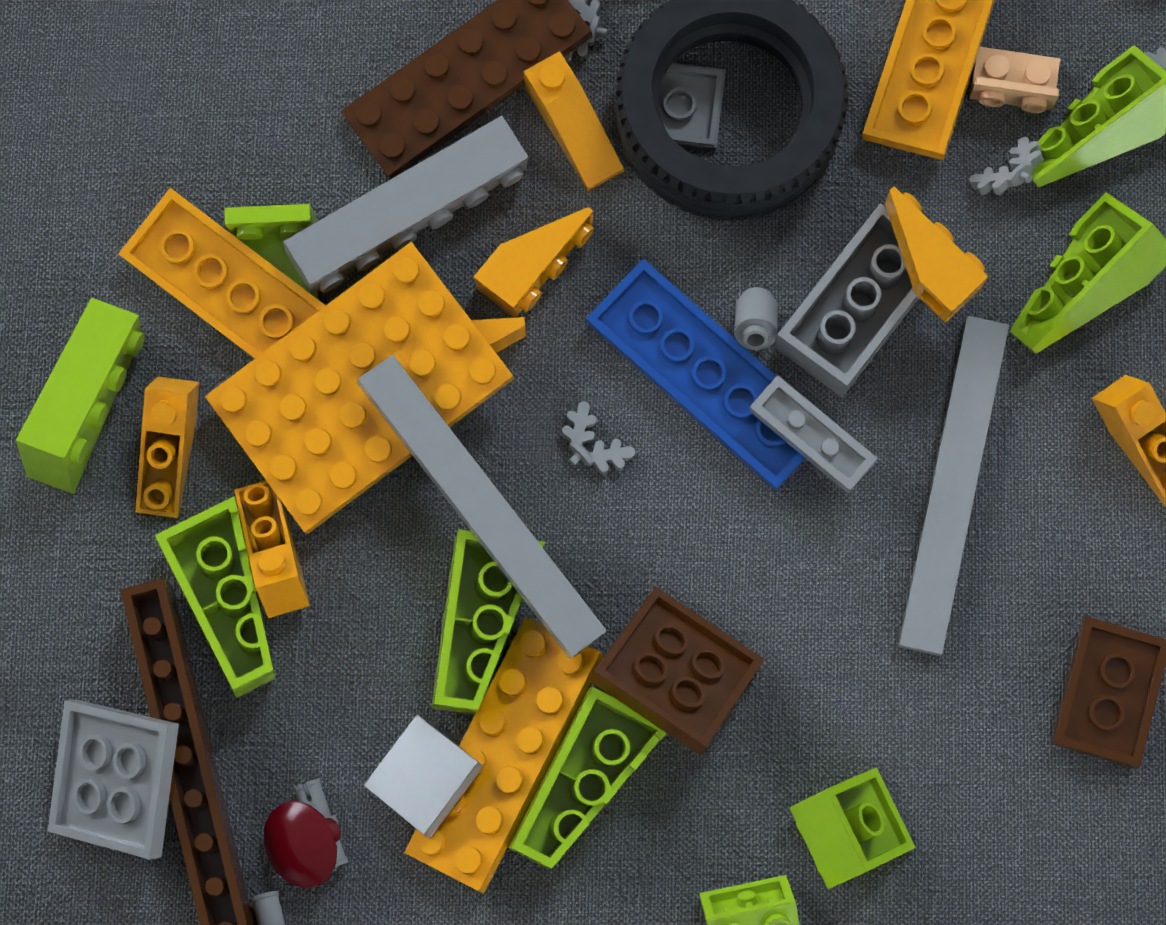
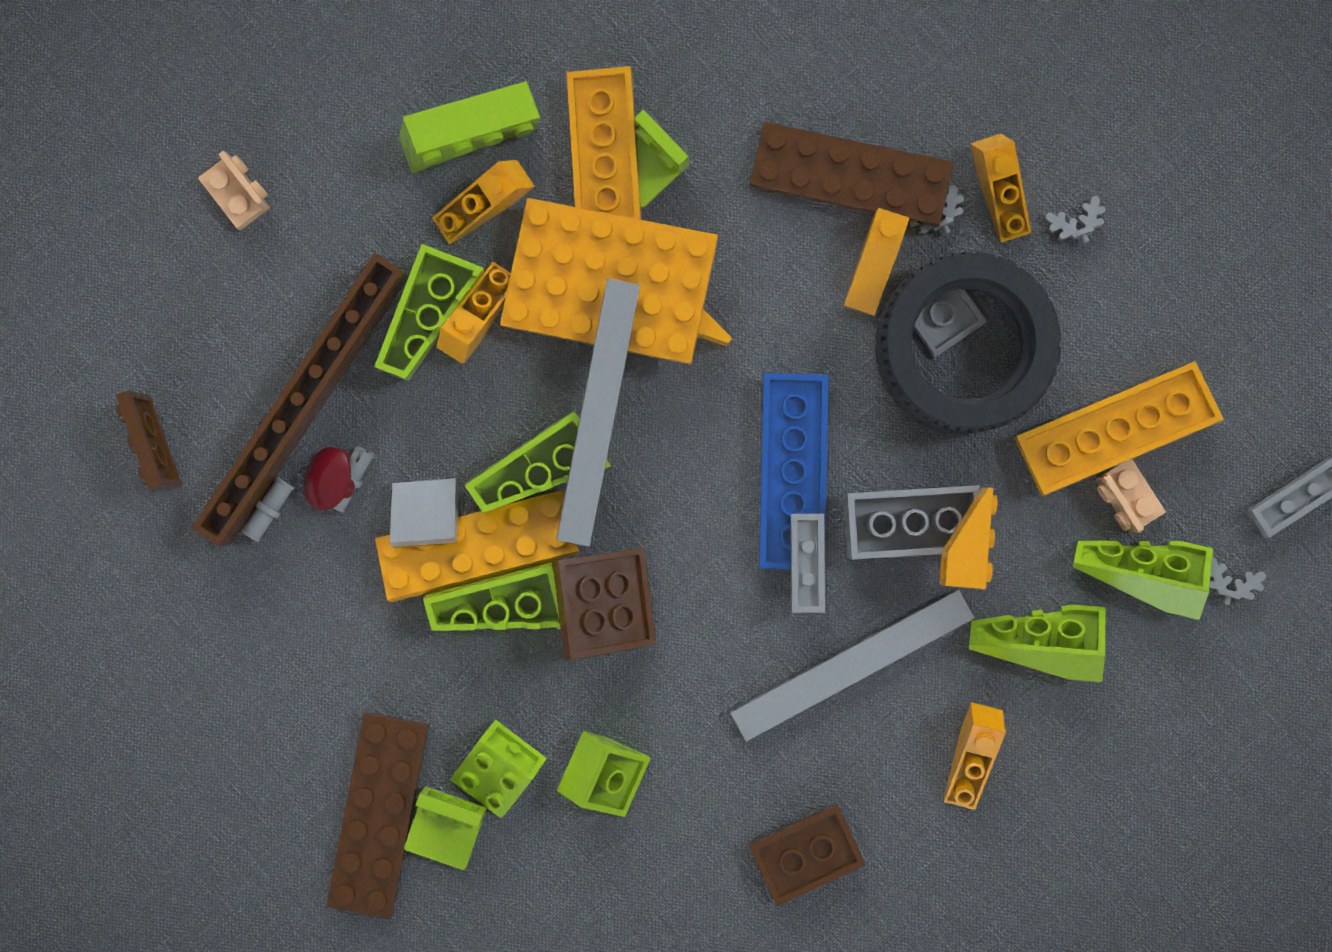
camera: 45 degrees right, 10 degrees up
(113, 778) = (270, 344): light grey plate -> none
(406, 205) = (740, 211): light grey brick -> none
(524, 264) = (764, 309): light orange slope -> none
(599, 458) = (690, 450): light grey animal -> none
(756, 319) = (849, 471): light grey brick -> none
(1023, 161) = (1084, 543): light grey animal -> none

